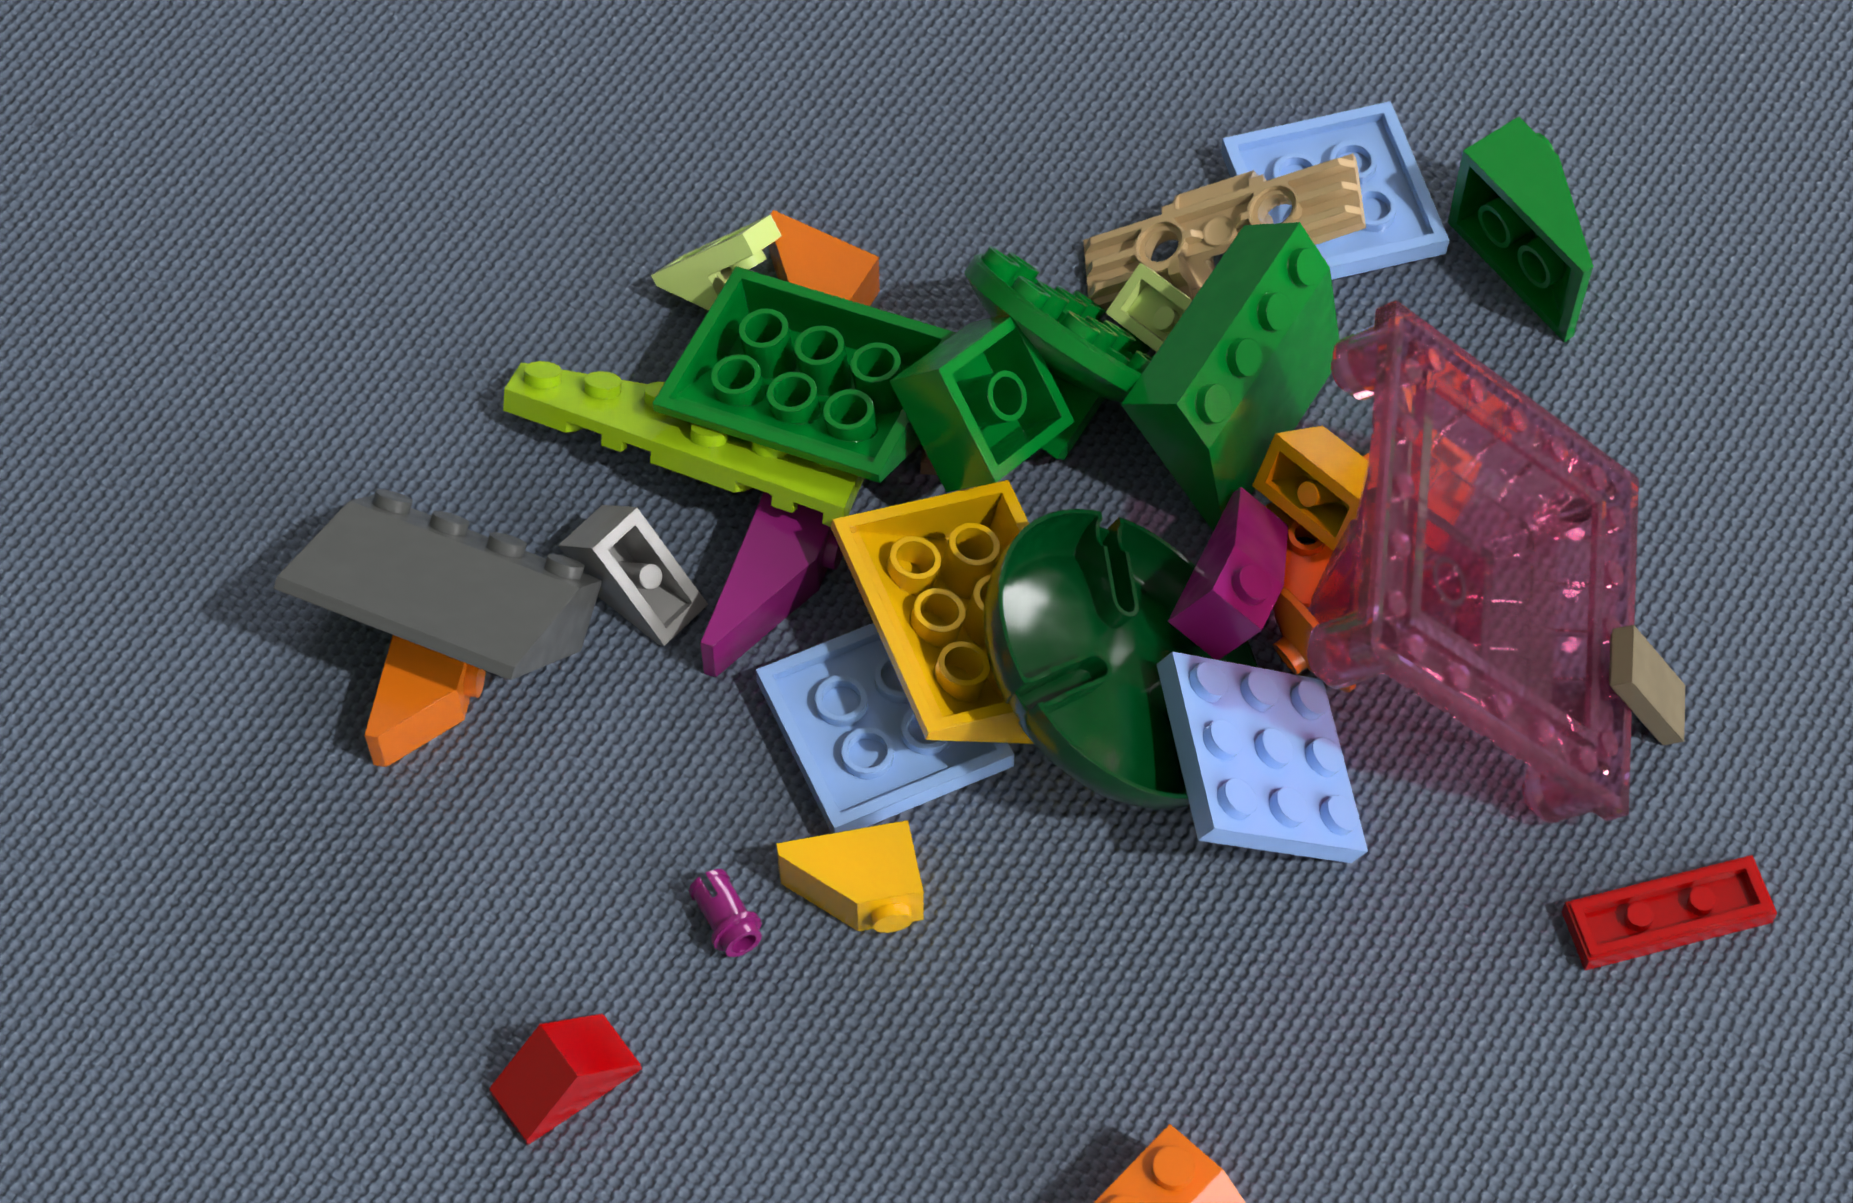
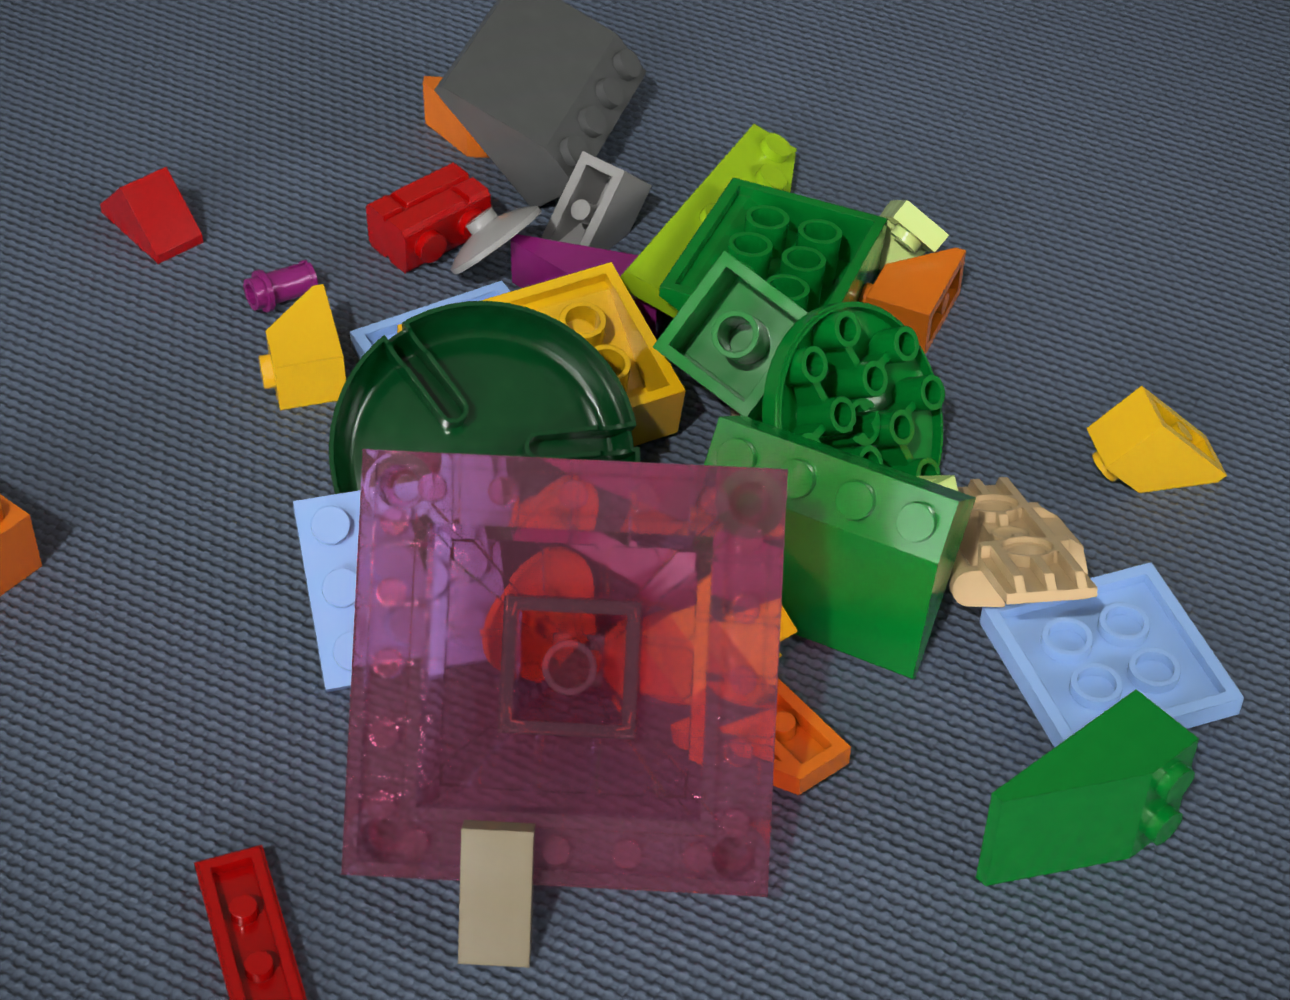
camera: 85 degrees right, 15 degrees down
(623, 745) = (426, 217): none -> red brick
(711, 663) = (491, 232): none -> light grey dish
(1063, 112) = (1152, 446): none -> yellow slope

